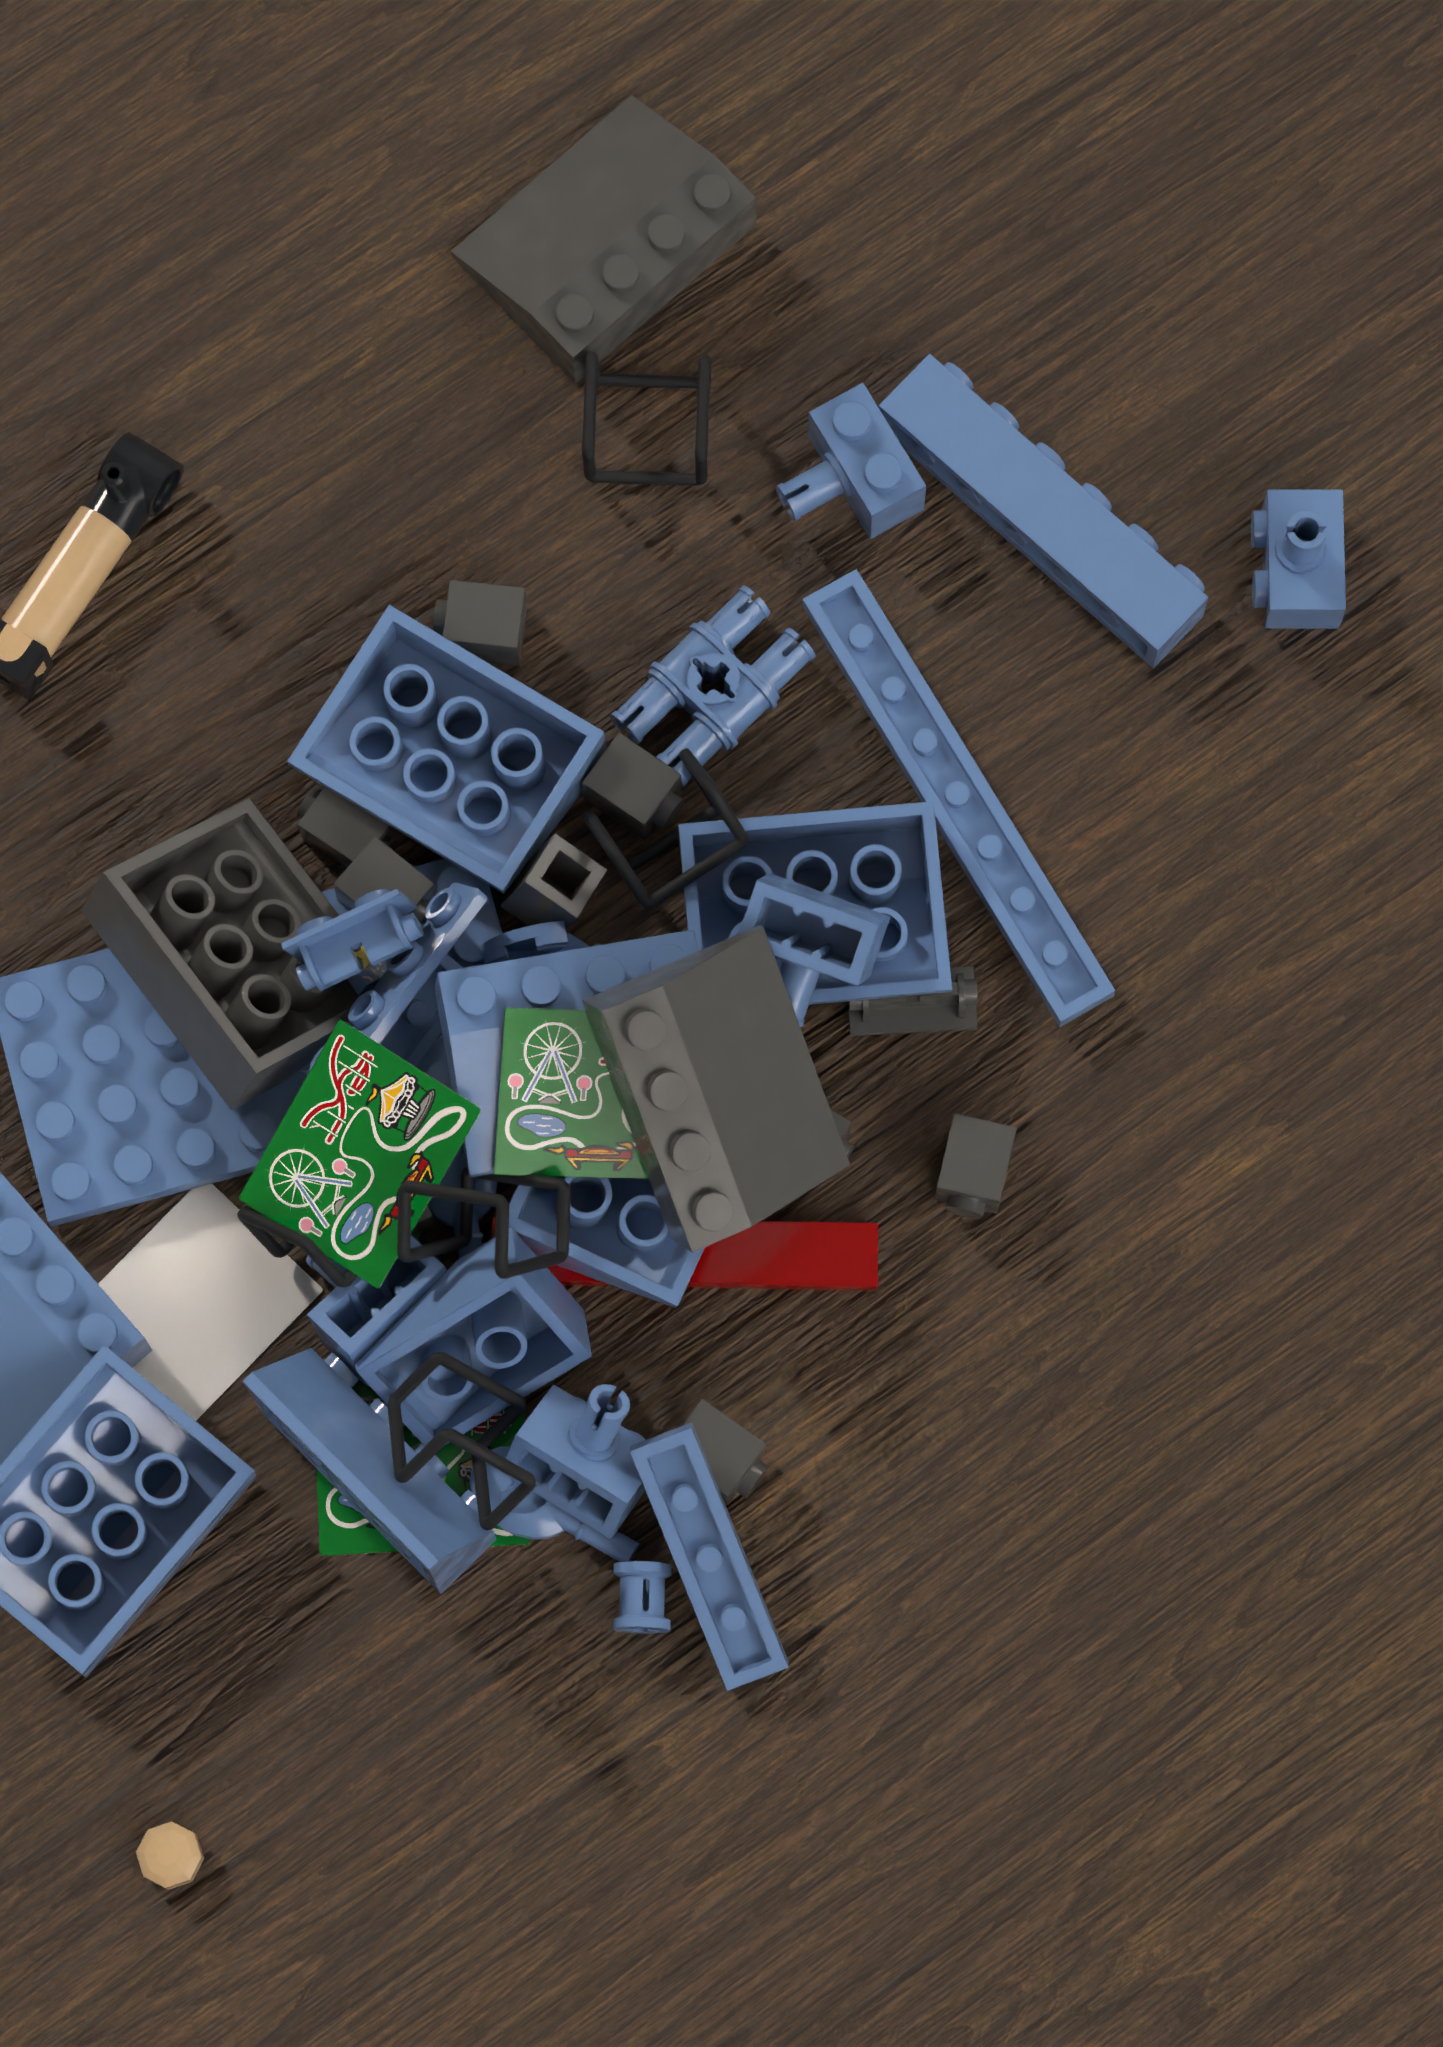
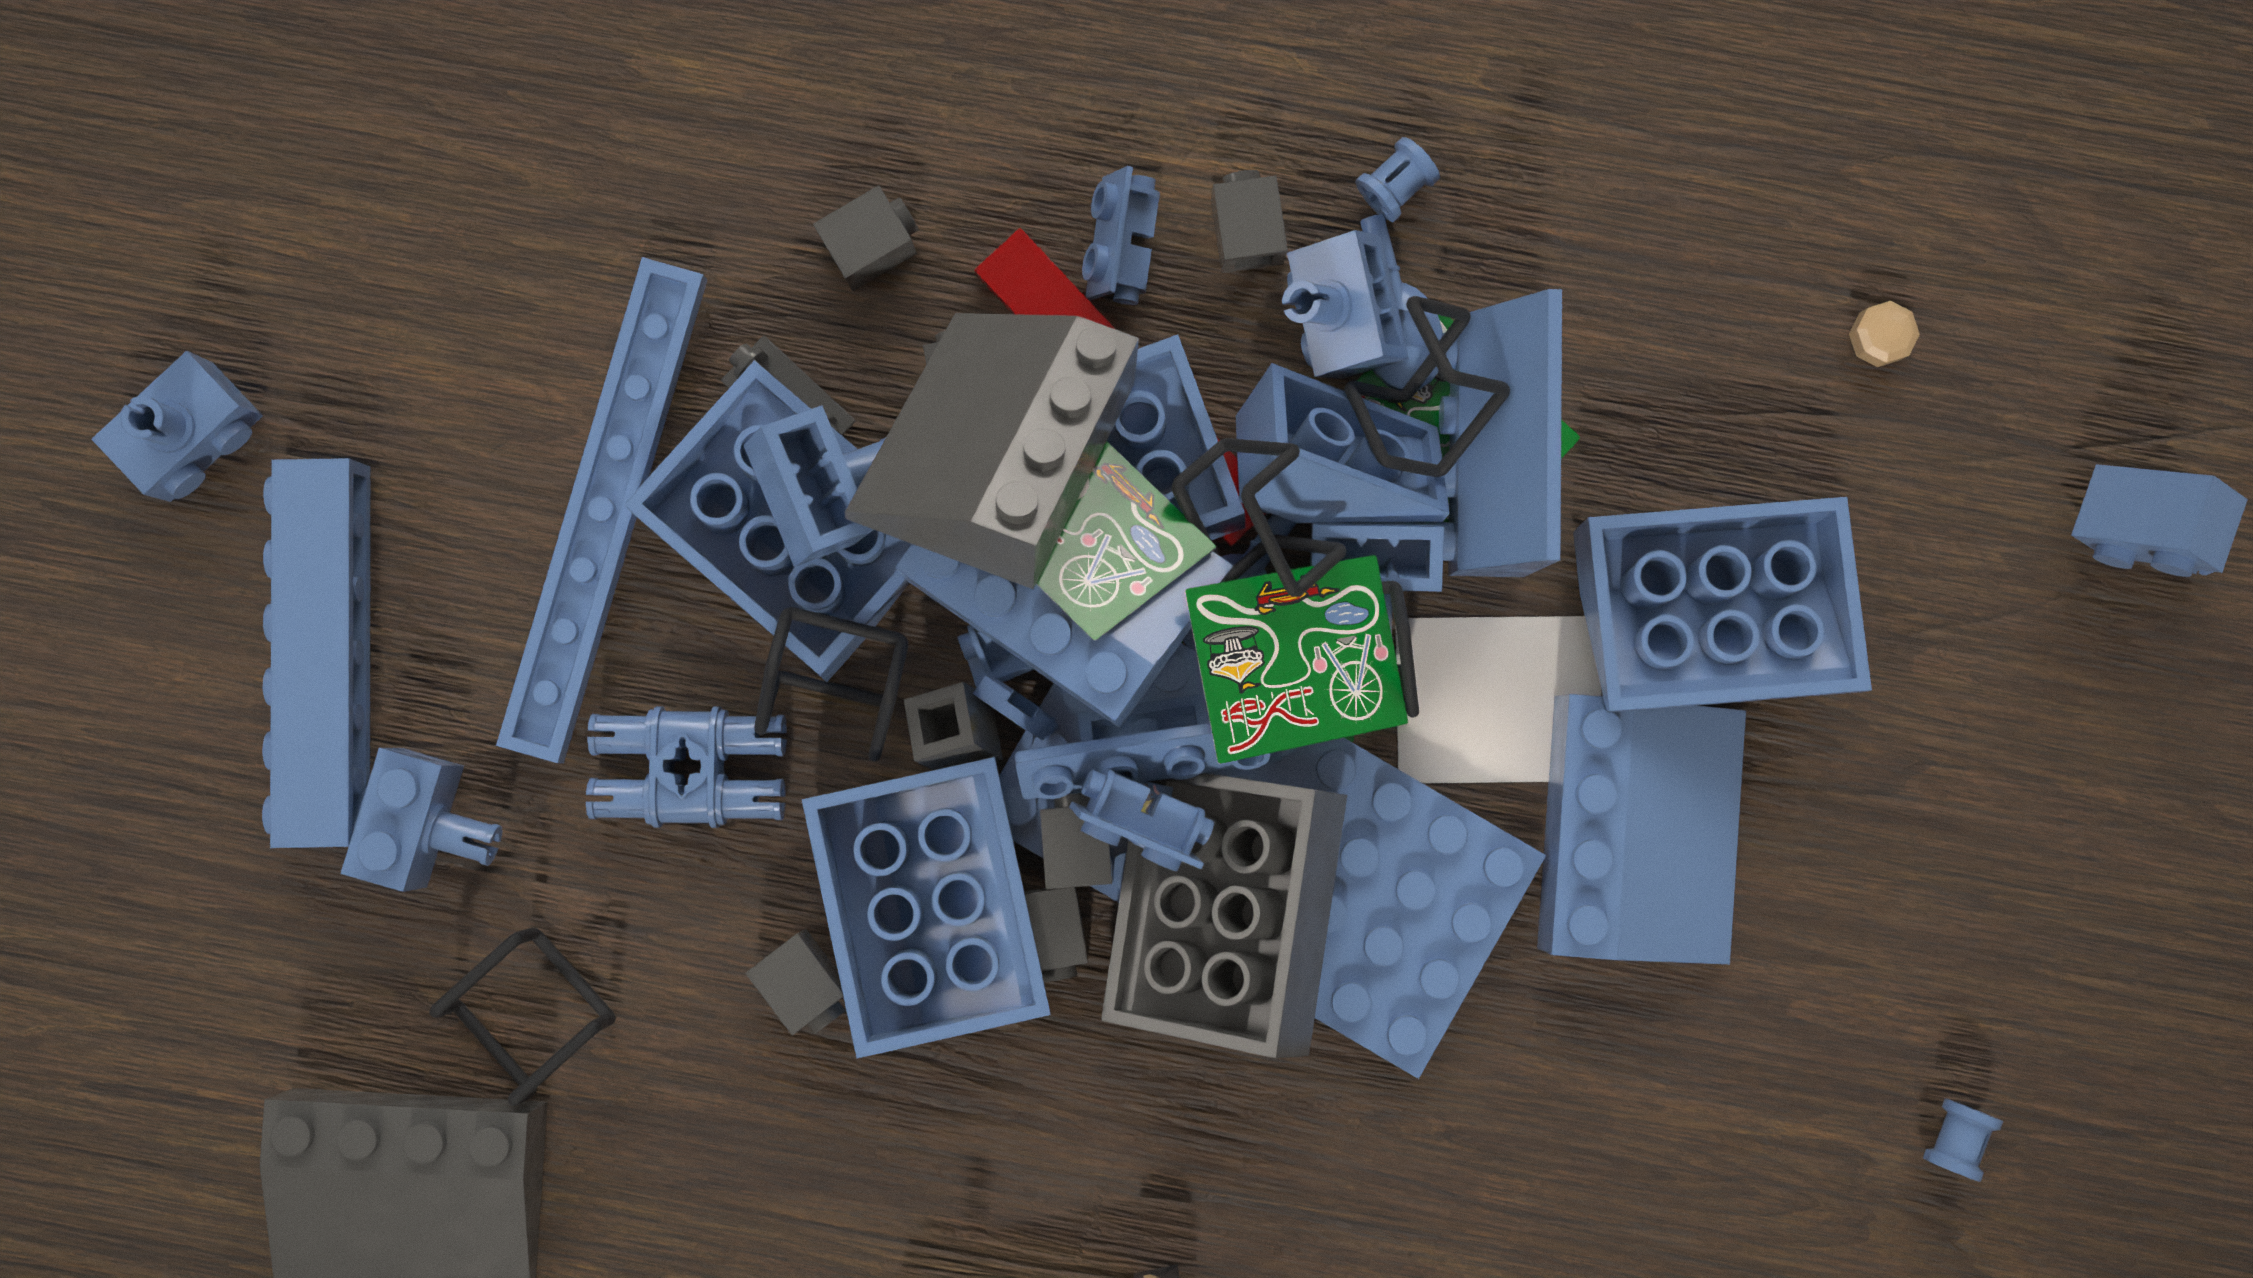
camera: 140 degrees left, 10 degrees up
(634, 788) = (819, 746): dark grey brick -> none
(709, 1556) = (1329, 151): medium blue plate -> none
(817, 1367) = (1122, 208): none -> medium blue hinge

